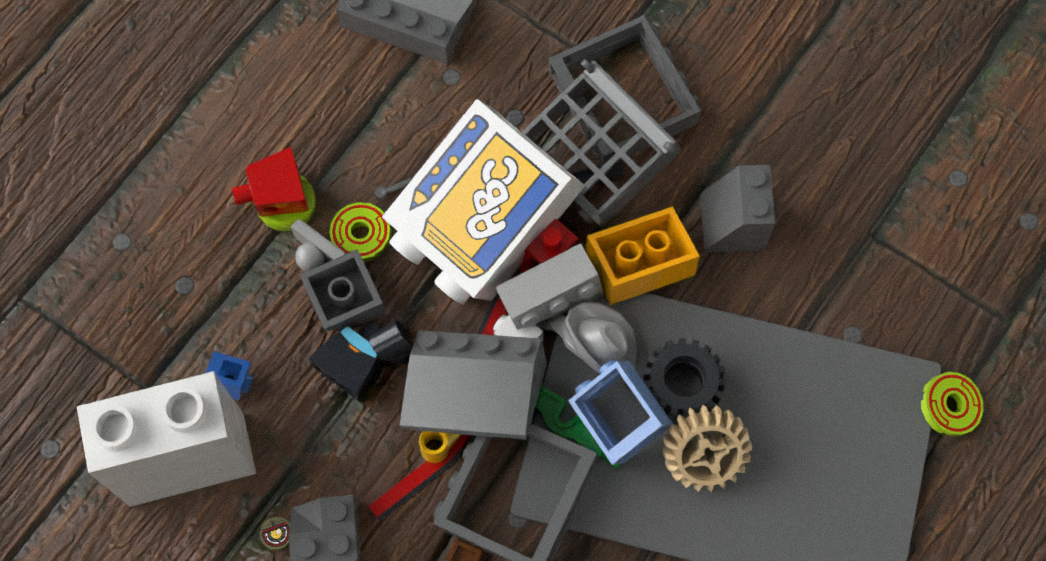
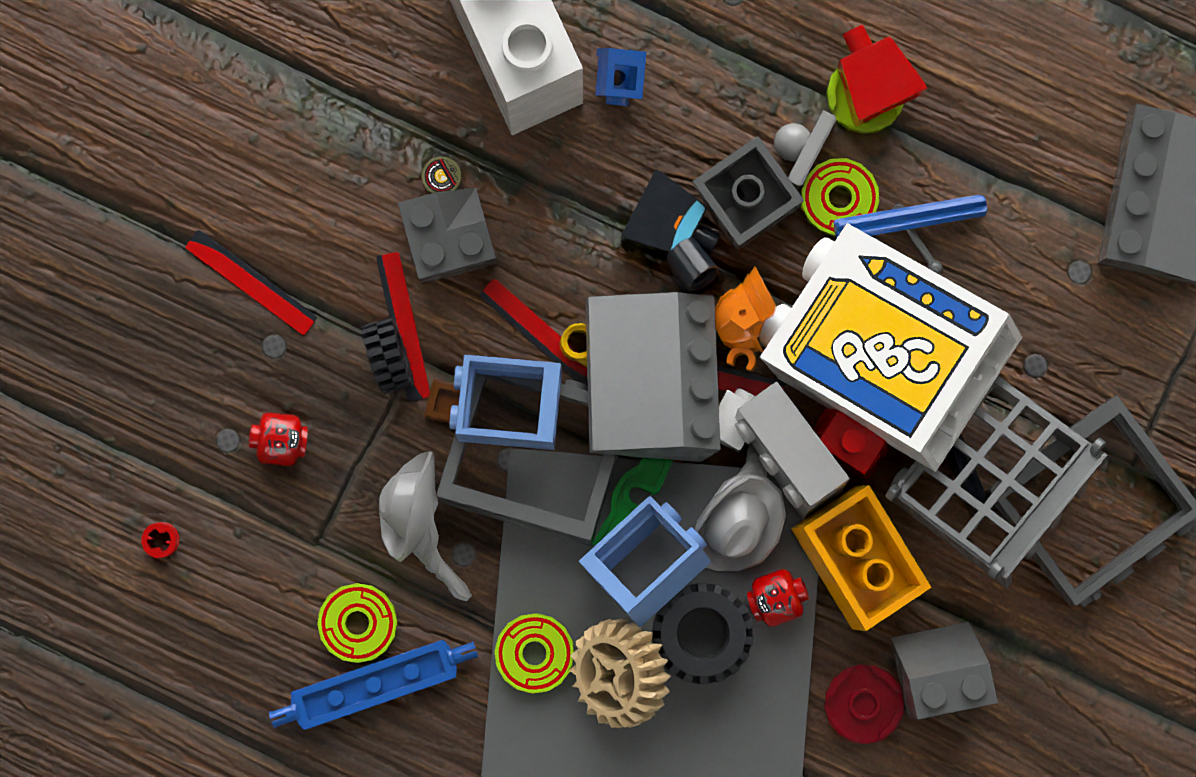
camera: 75 degrees right, 15 degrees up
(386, 179) = (915, 216): none -> blue axle
(436, 309) = (741, 318): none -> orange helmet
(479, 466) = (465, 381): none -> medium blue window
(663, 321) = (777, 598): none -> red head
(679, 500) = (510, 653): none -> lime tile
(752, 278) = (864, 704): none -> dark red tile

